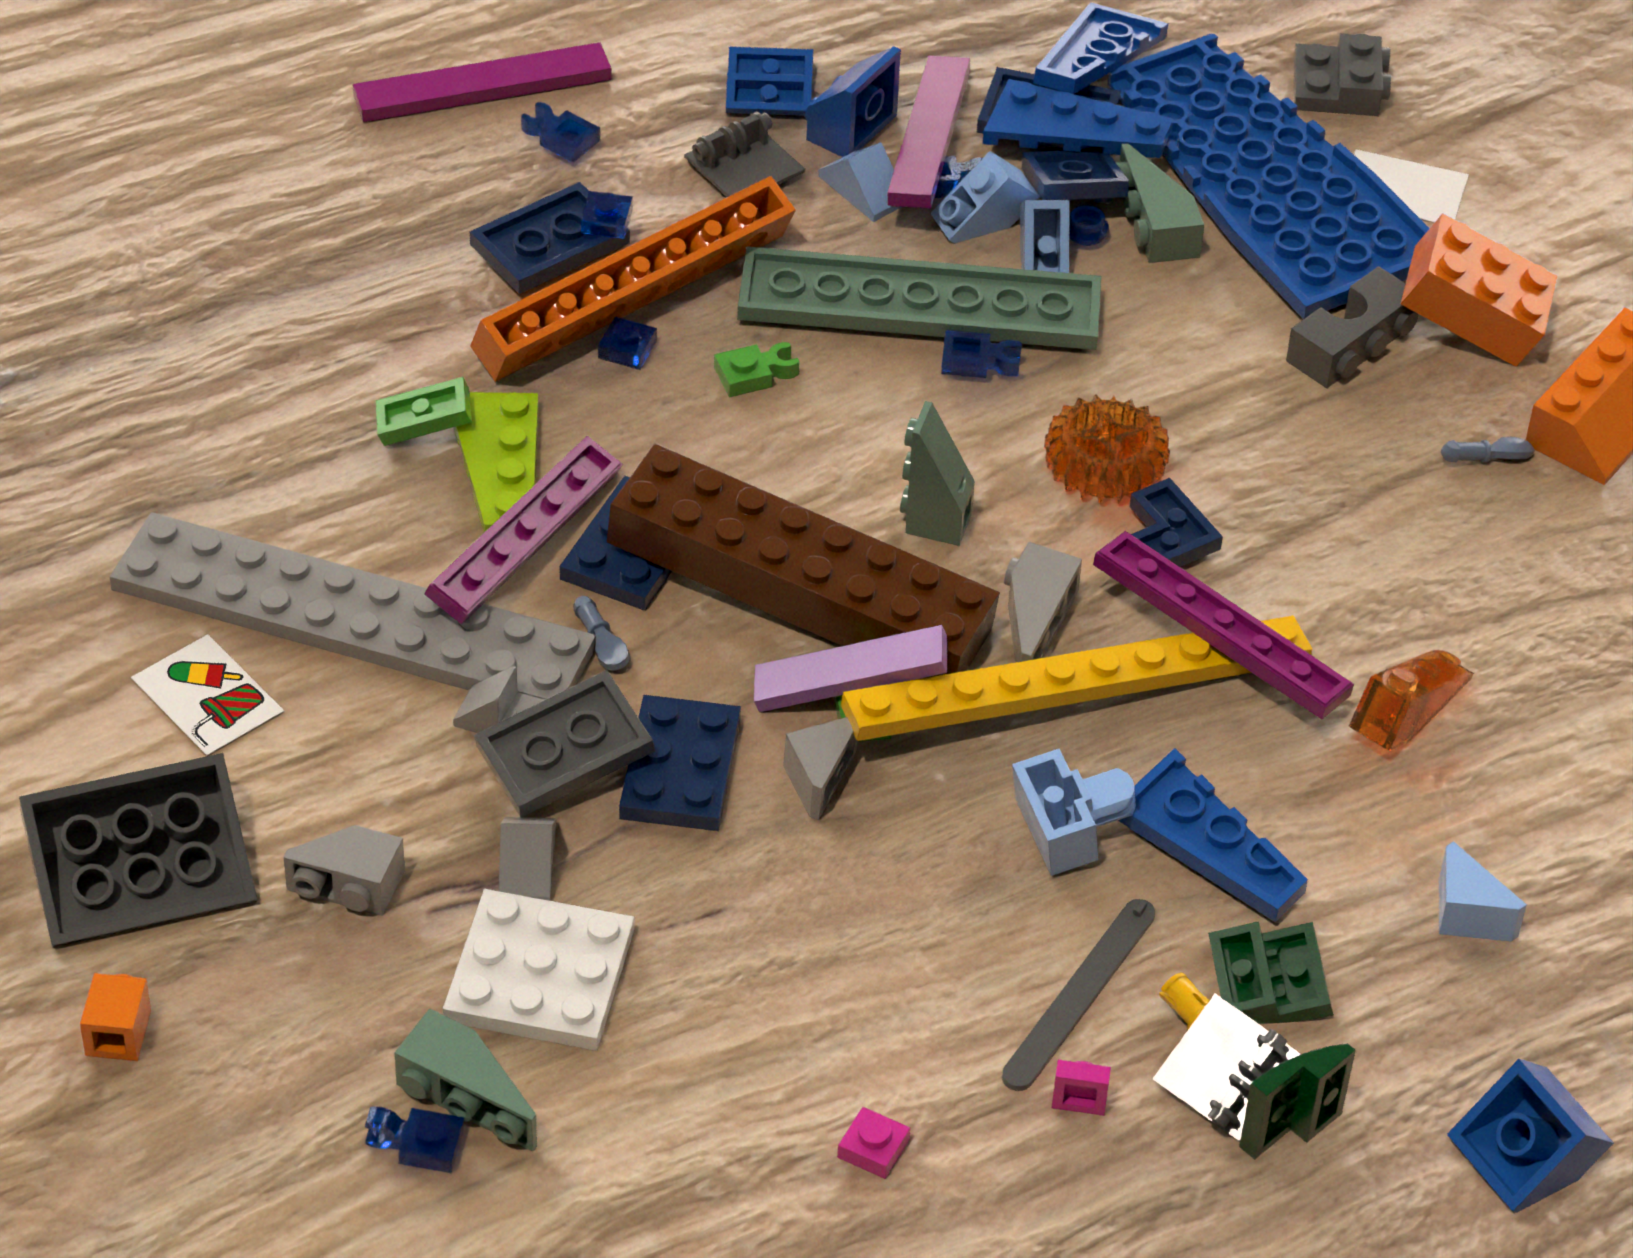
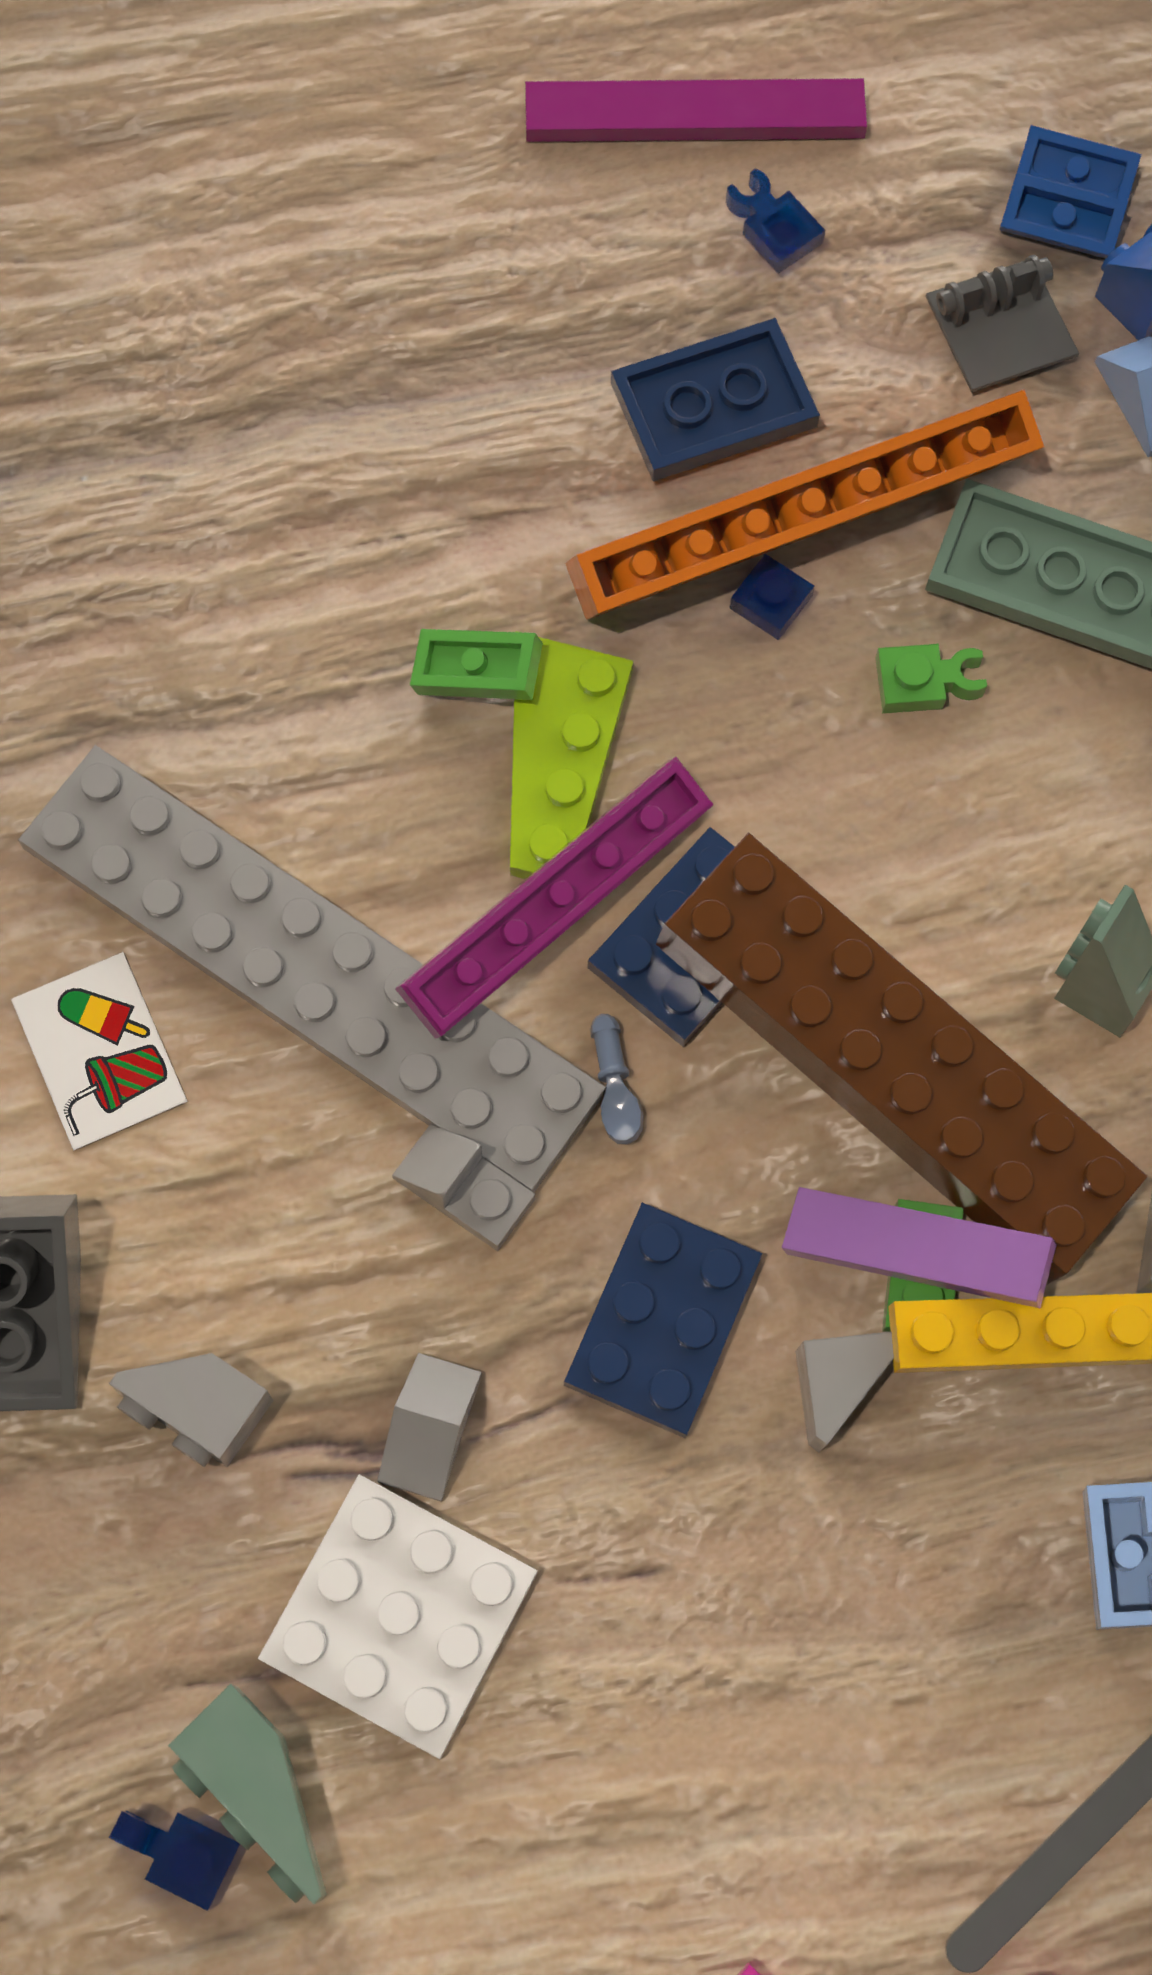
camera: 15 degrees right, 25 degrees up
(564, 743) = (514, 1276): dark grey plate -> none
(607, 214) = (795, 387): clear blue plate -> none

